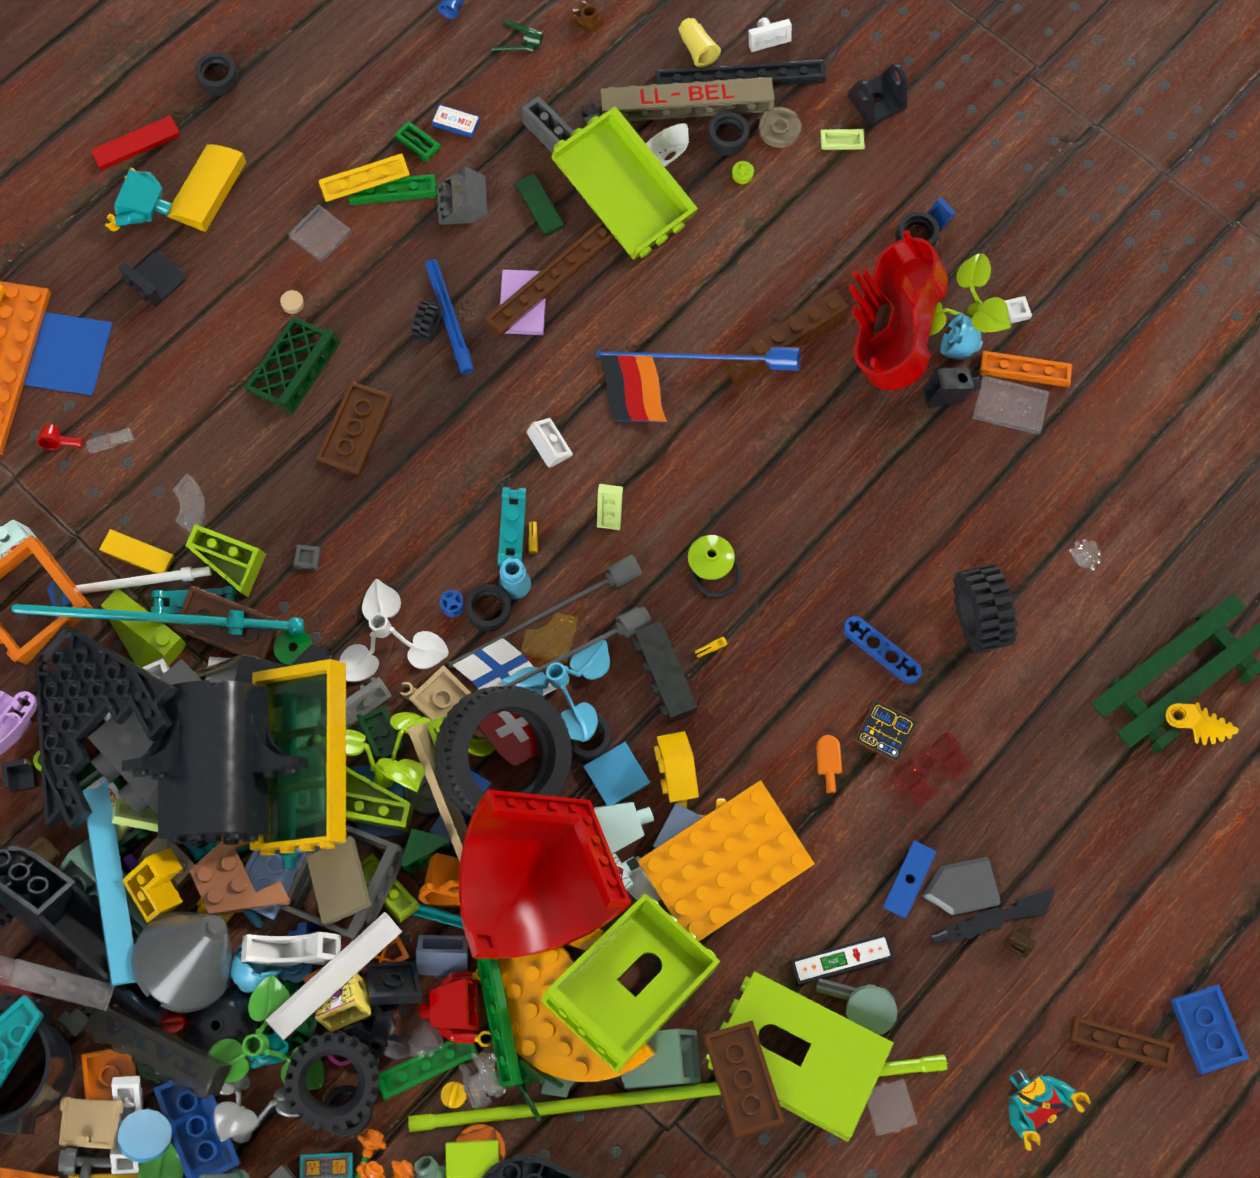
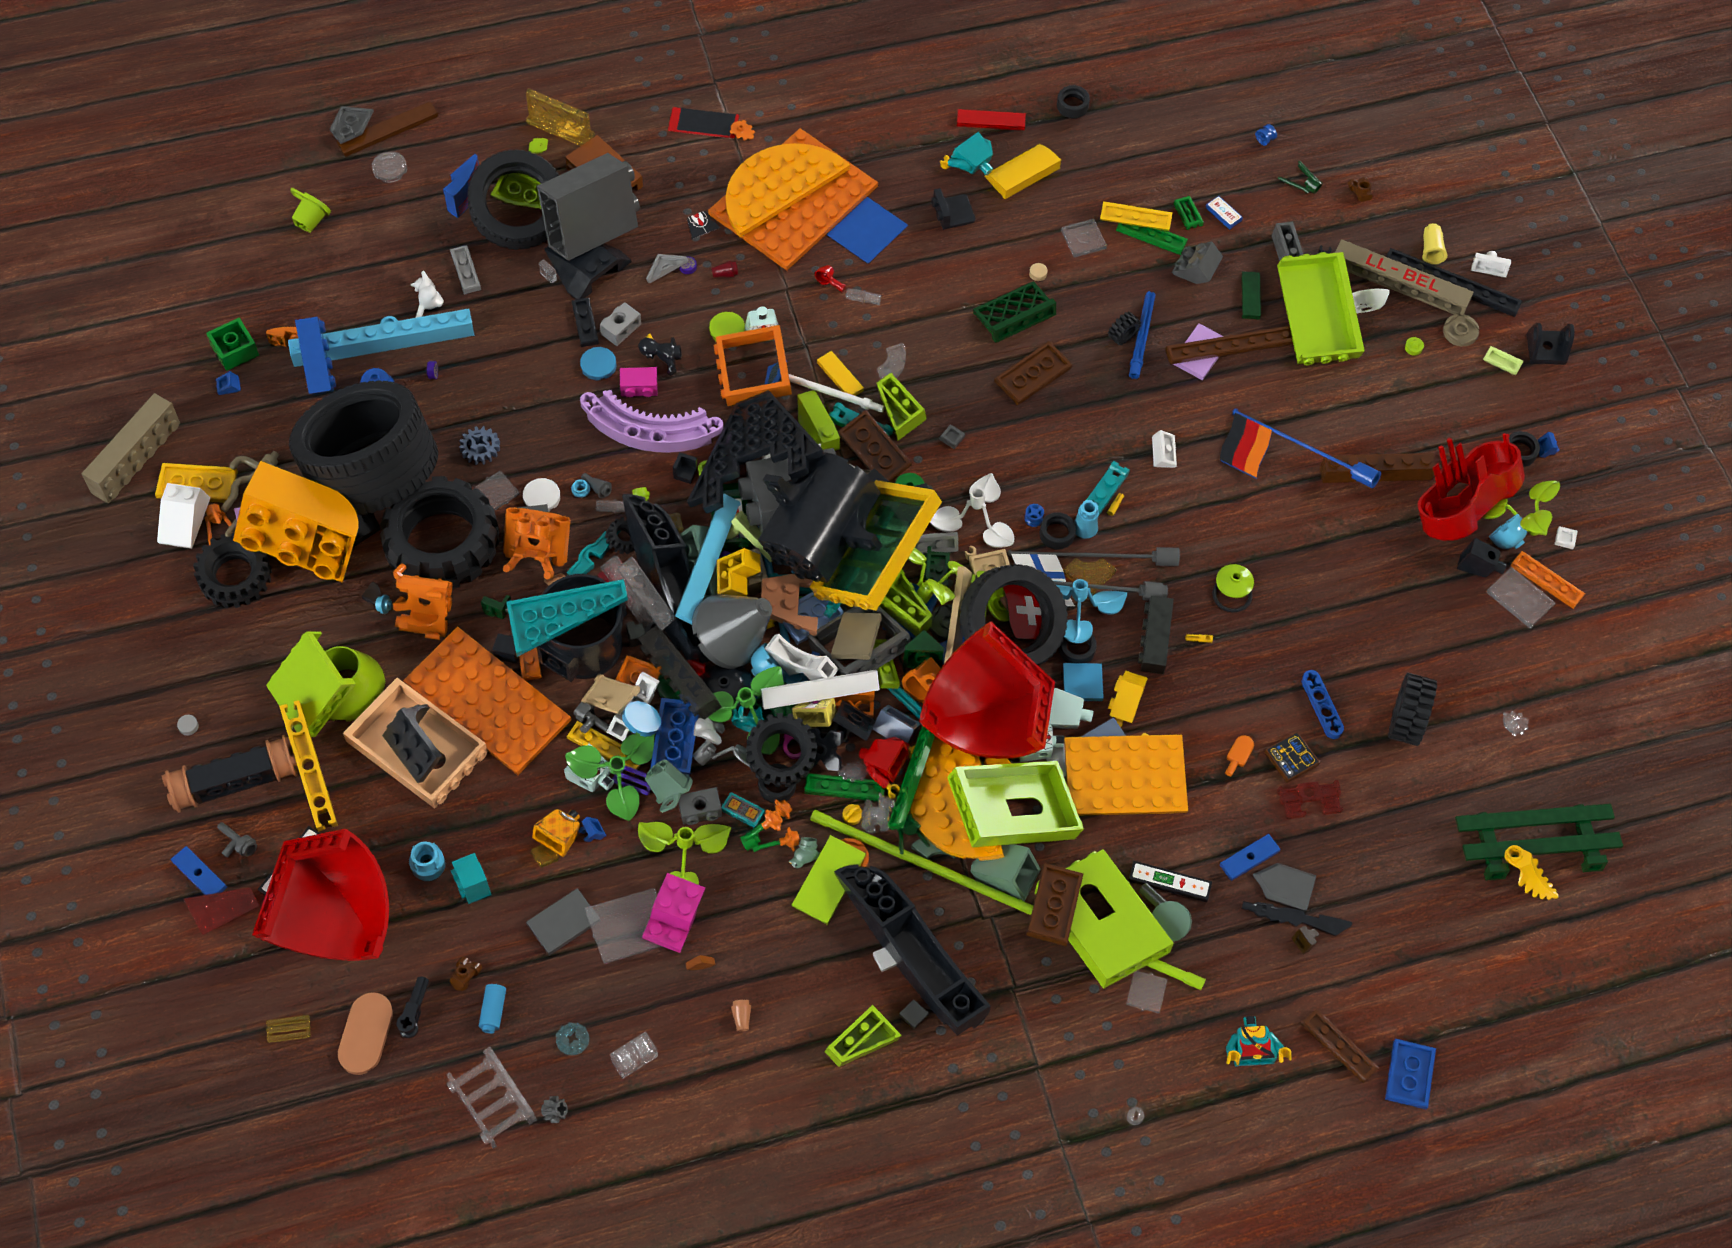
camera: 30 degrees right, 10 degrees down
(234, 622) = (880, 447): teal bar -> none
(609, 506) = (1181, 506): yellowish green piece -> none
(728, 119) = (1421, 304): black tyre -> none

